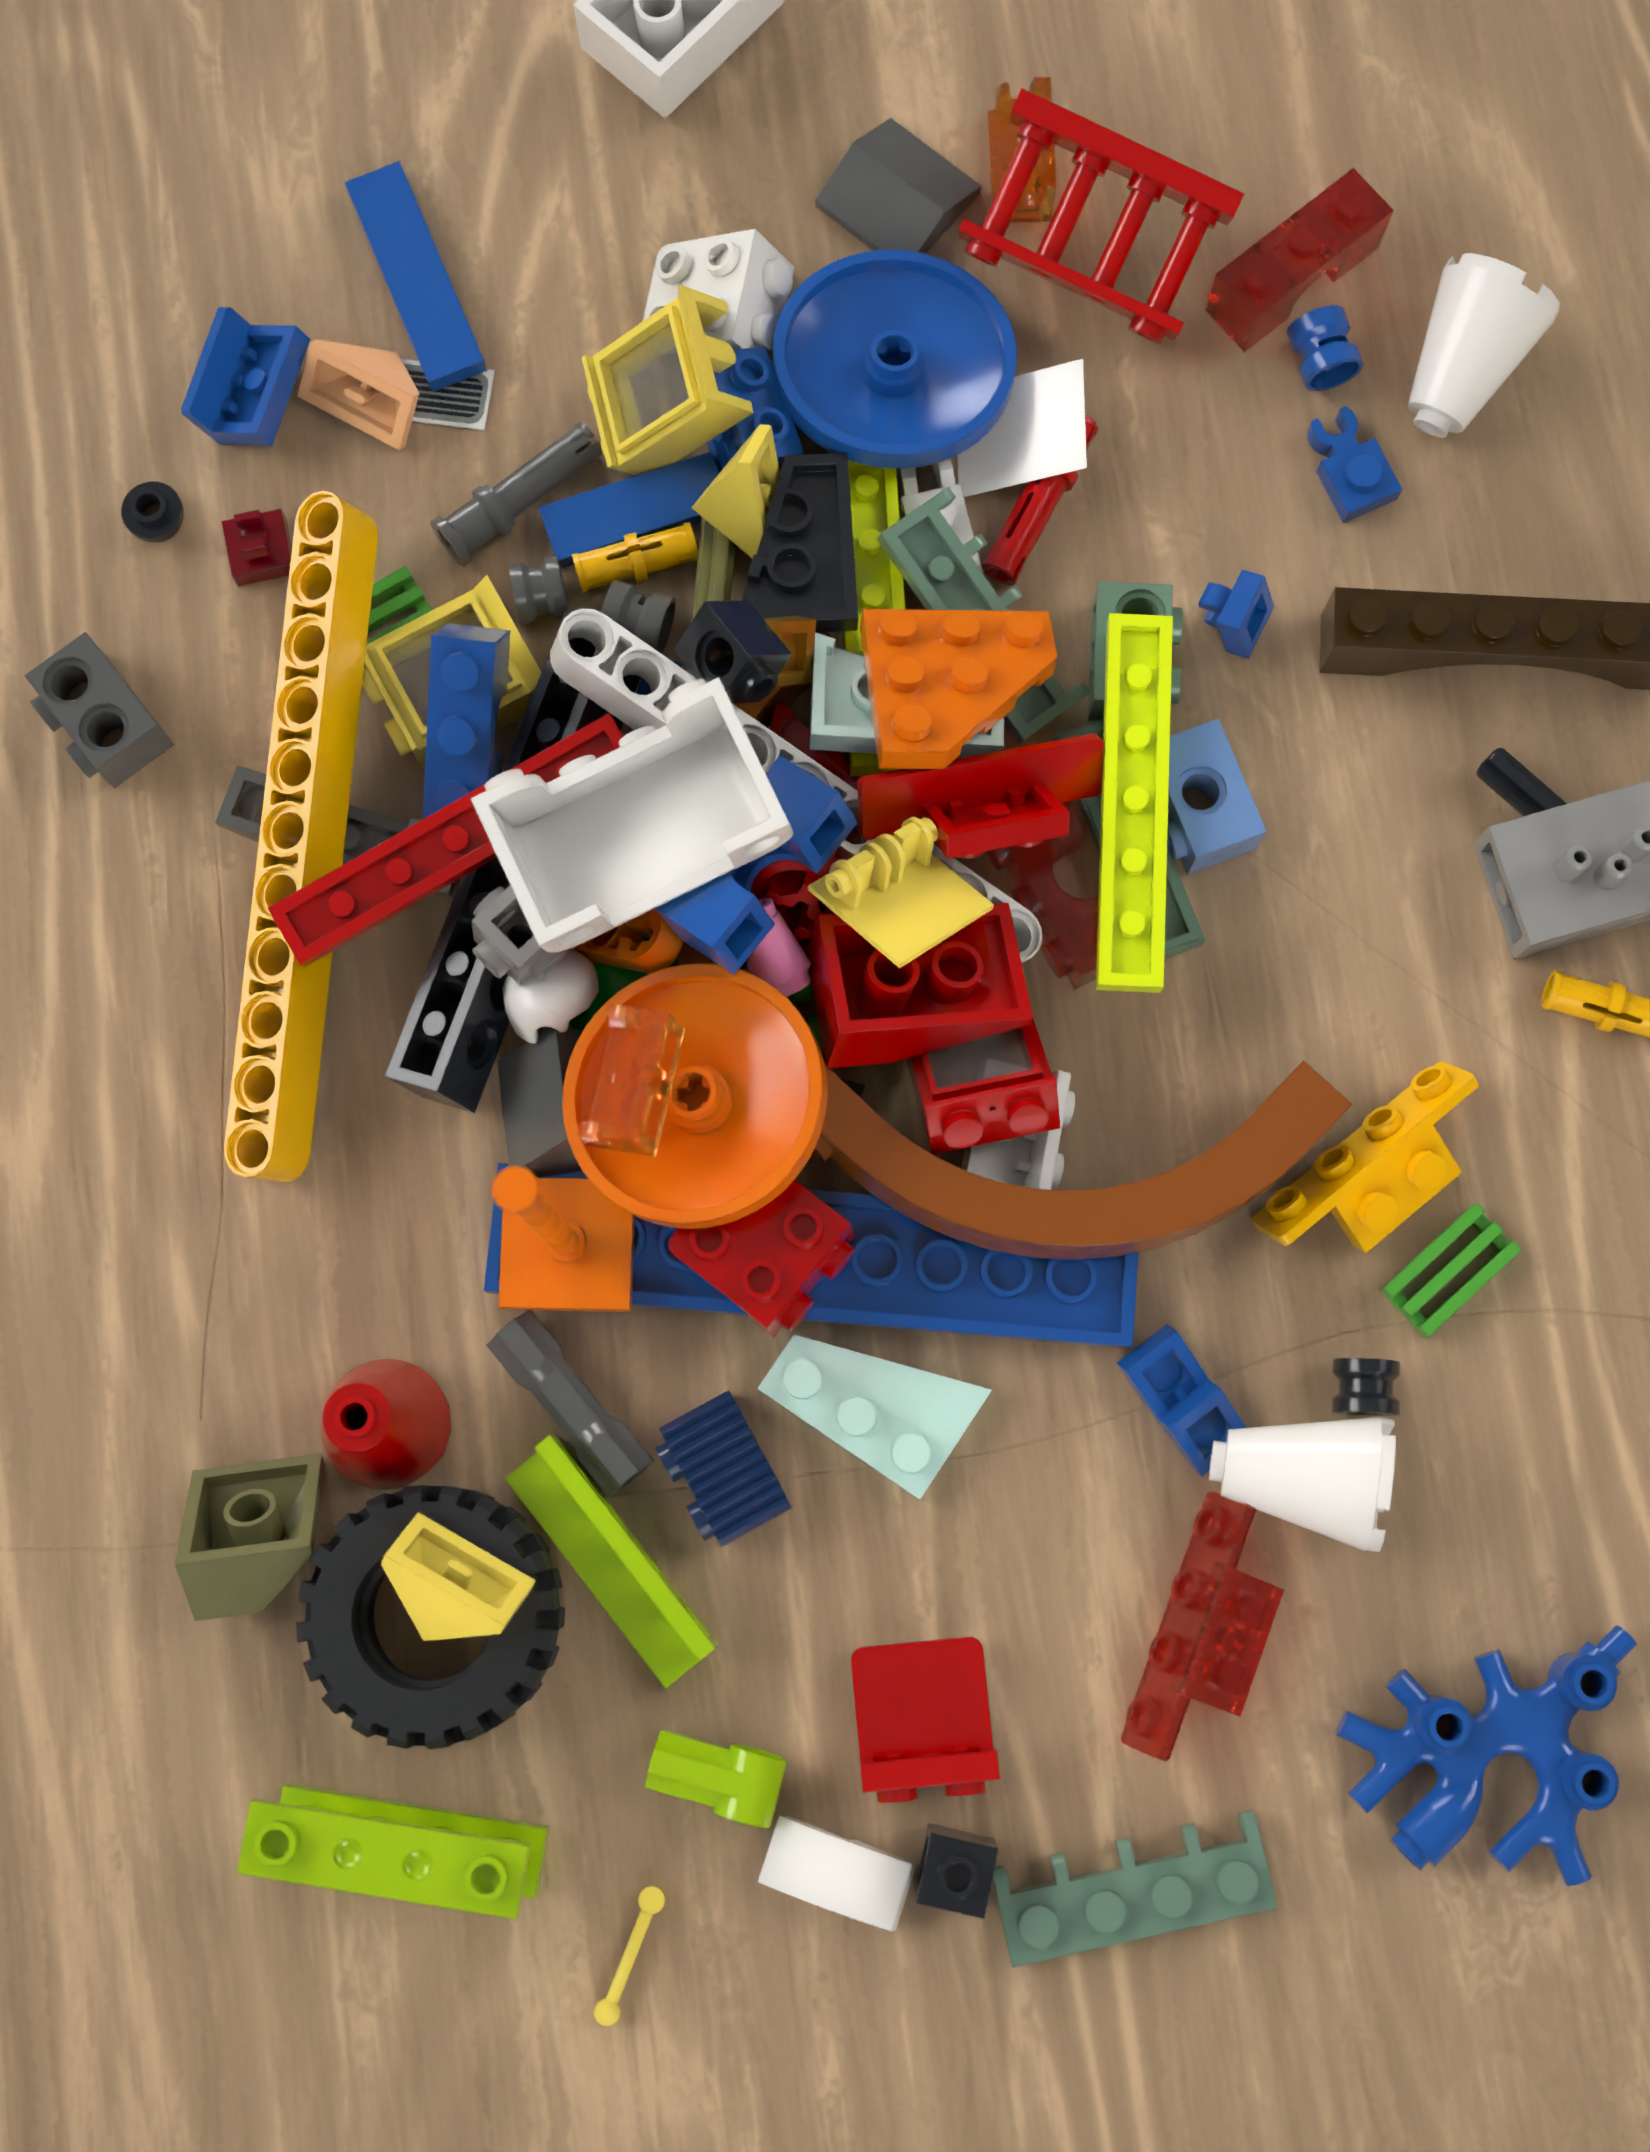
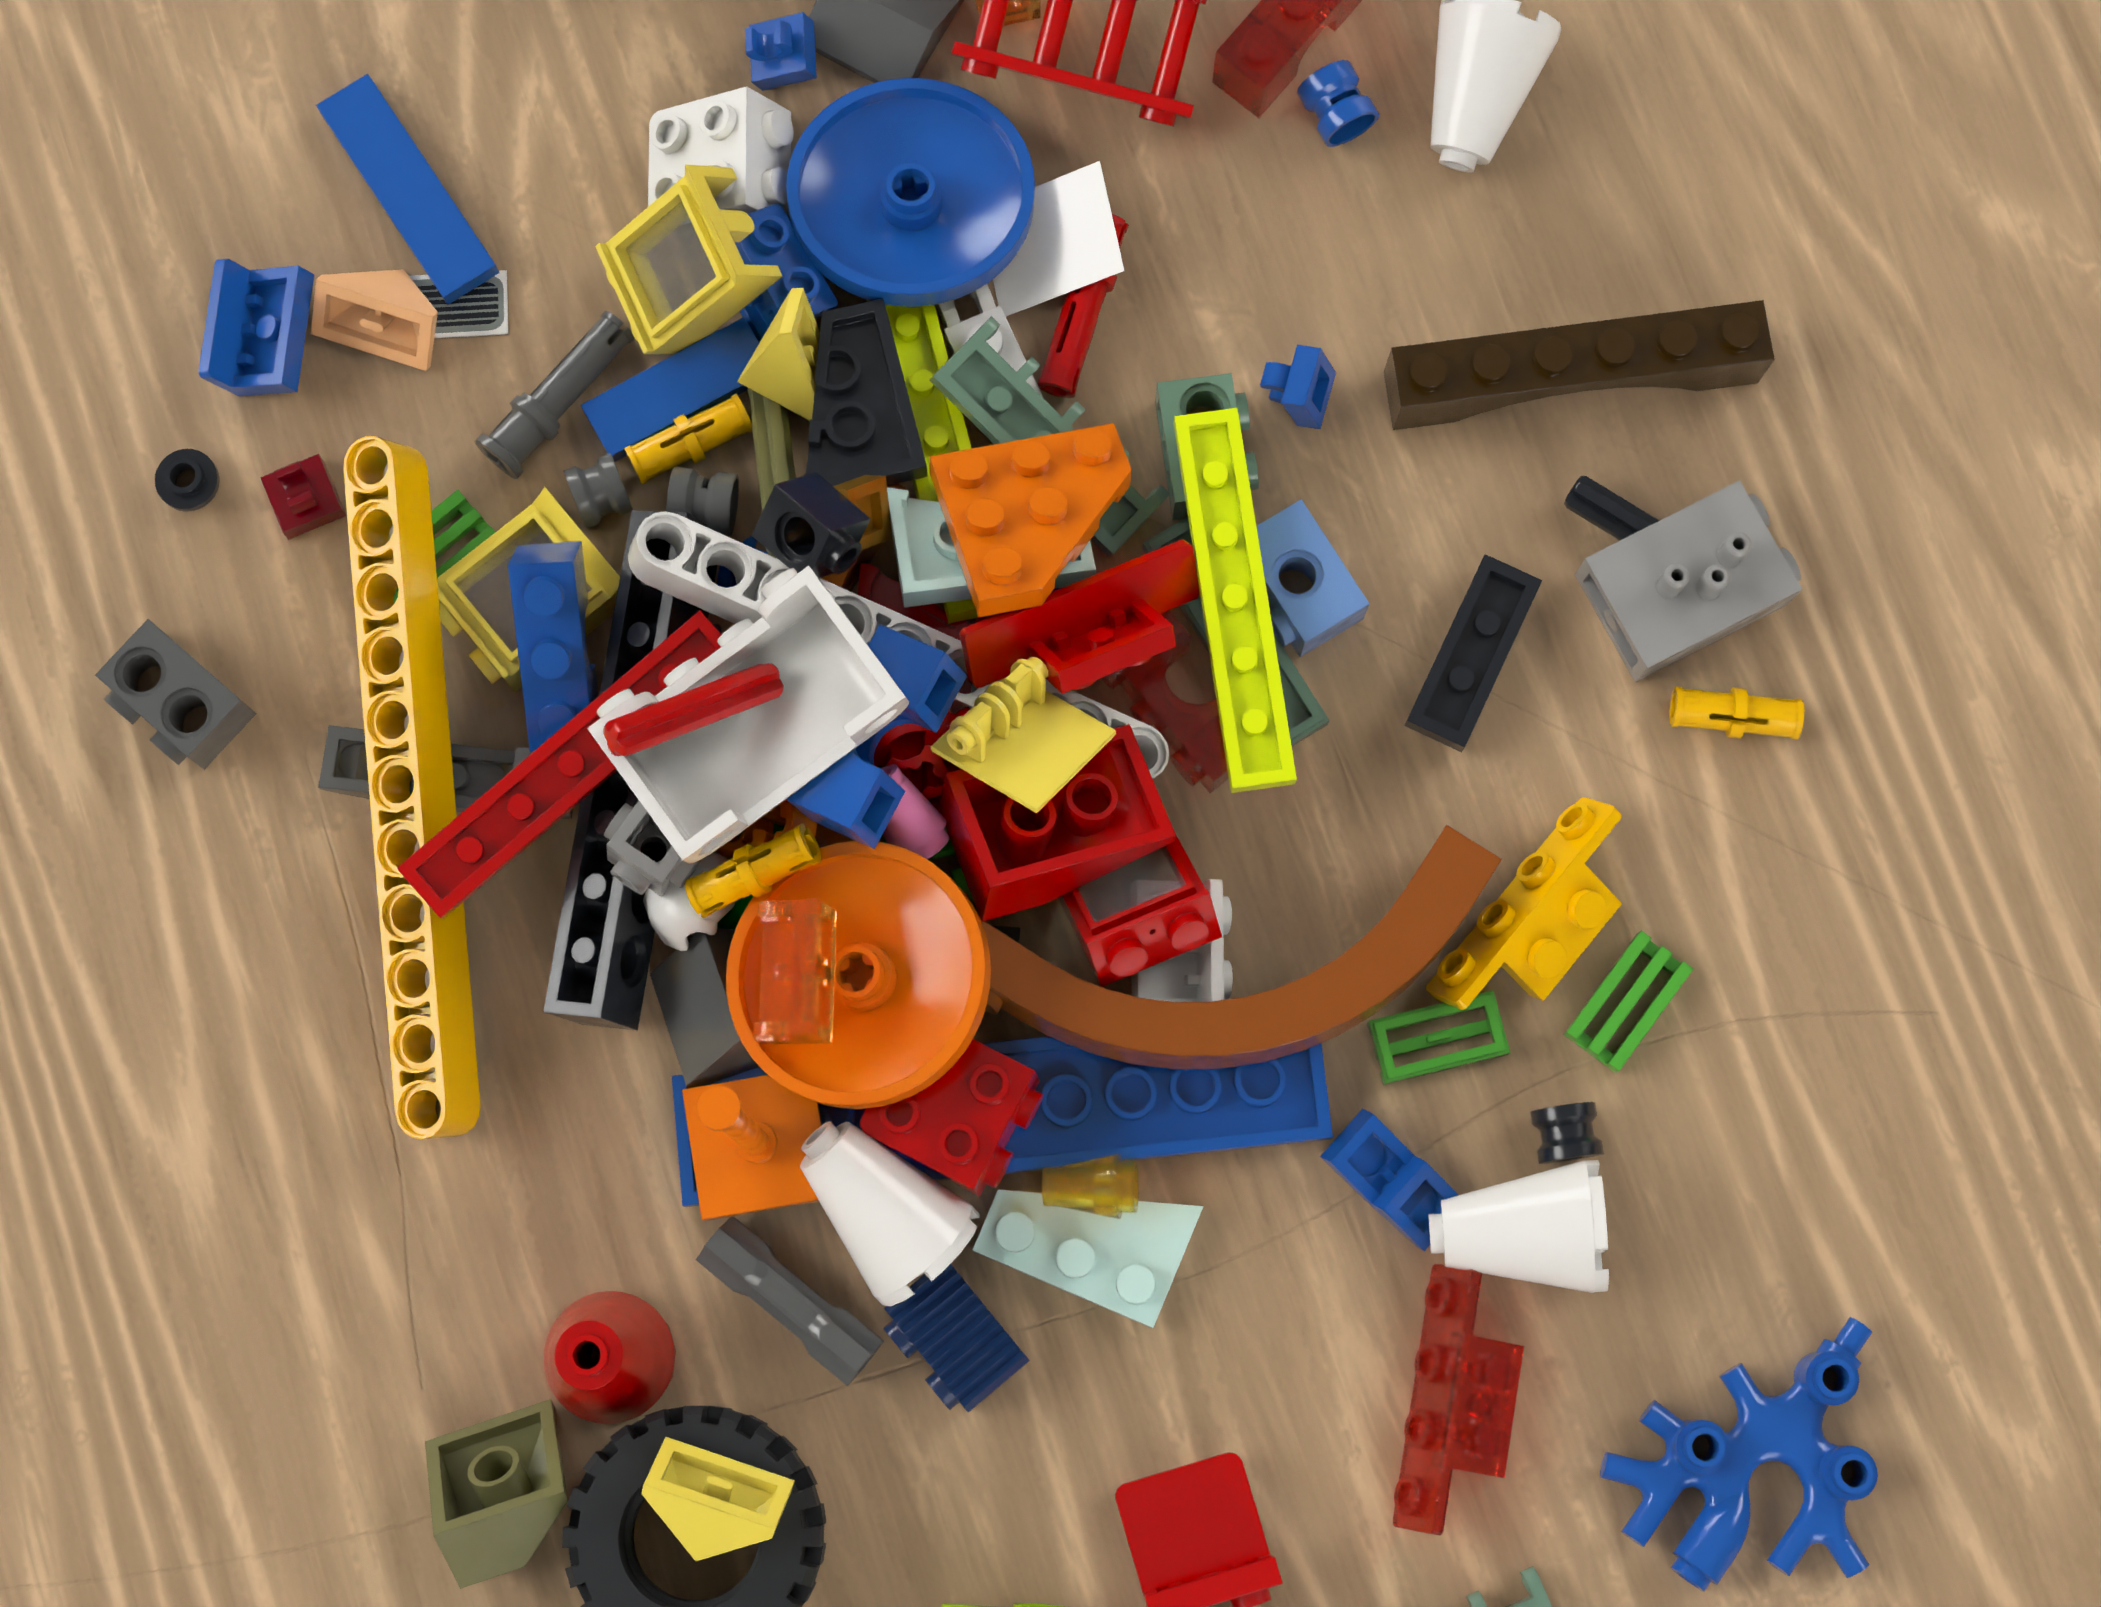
camera: 15 degrees left, 0 degrees up
(578, 801) = (692, 709): none -> red axle
(611, 974) = (752, 870): none -> yellow pin
(611, 1561) = (861, 1448): lime fence -> none
(678, 1331) = (885, 1210): none -> white cone
(796, 207) = (781, 51): none -> blue tile
(887, 1348) = (1093, 1186): none -> clear yellow cone
(1200, 1272) = (1385, 1051): none -> bright green tile
(1353, 474) = (1390, 224): blue plate -> none
(1359, 900) = (1473, 653): none -> black plate

